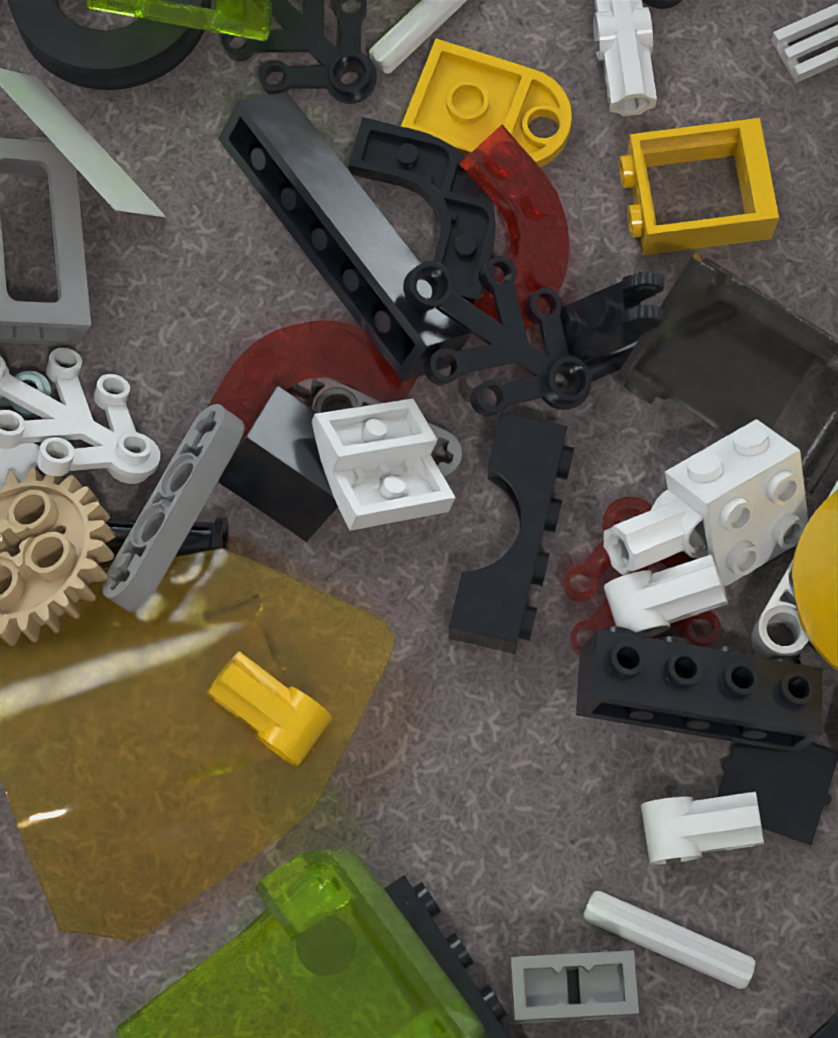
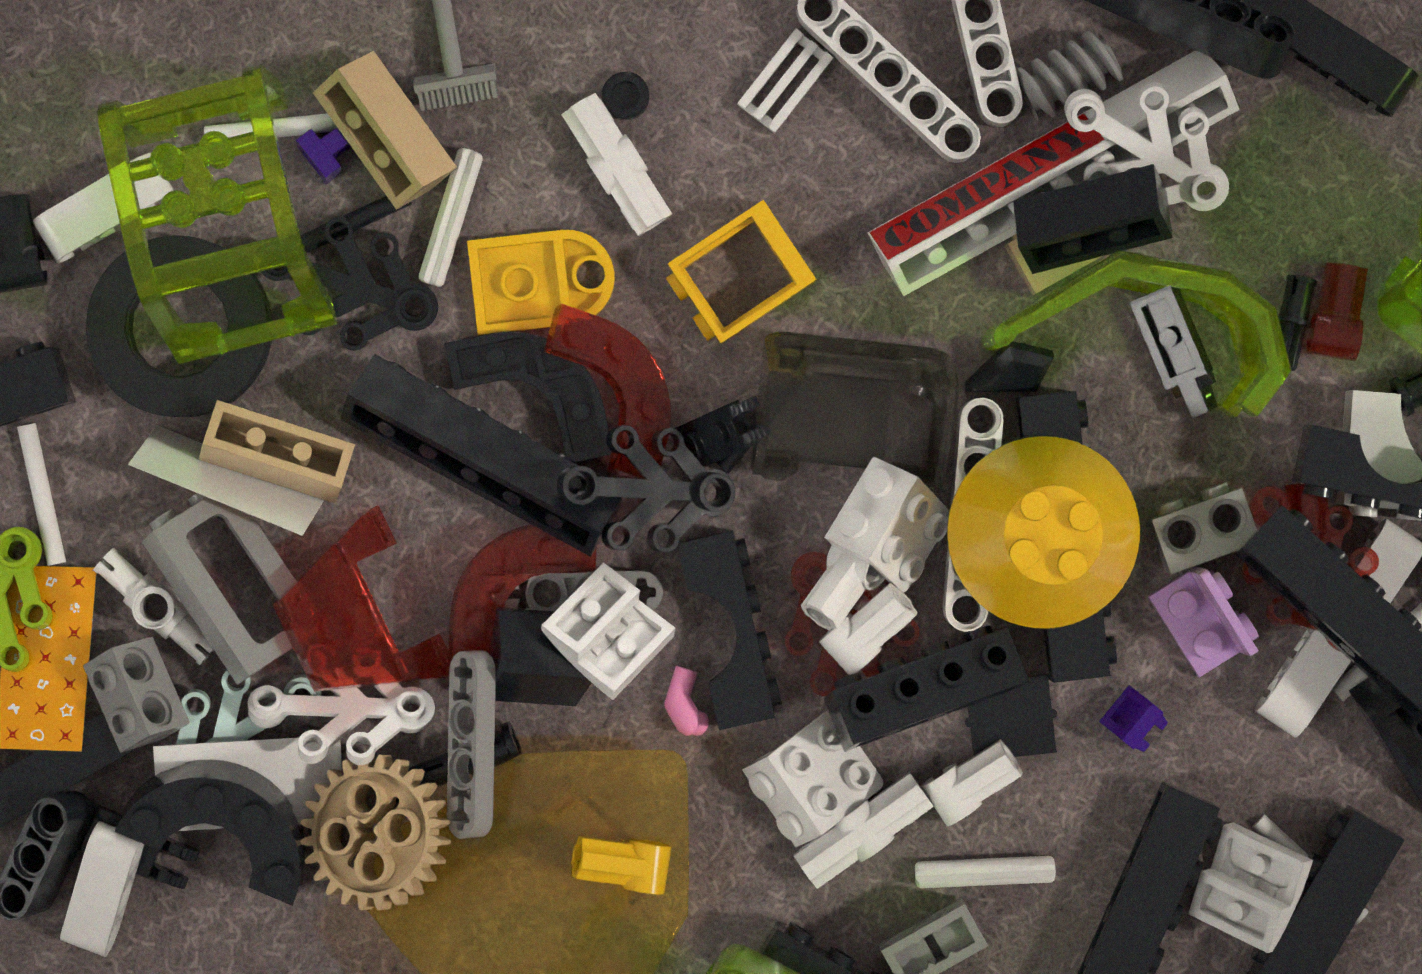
camera: 30 degrees left, 15 degrees up
(103, 330) = (339, 624): none -> clear red wing
(136, 135) = (276, 451): none -> tan brick
(419, 595) = (680, 706): none -> bright pink arm
(523, 738) = (812, 781): none -> white bracket
(554, 821) = (863, 830): none -> white piece

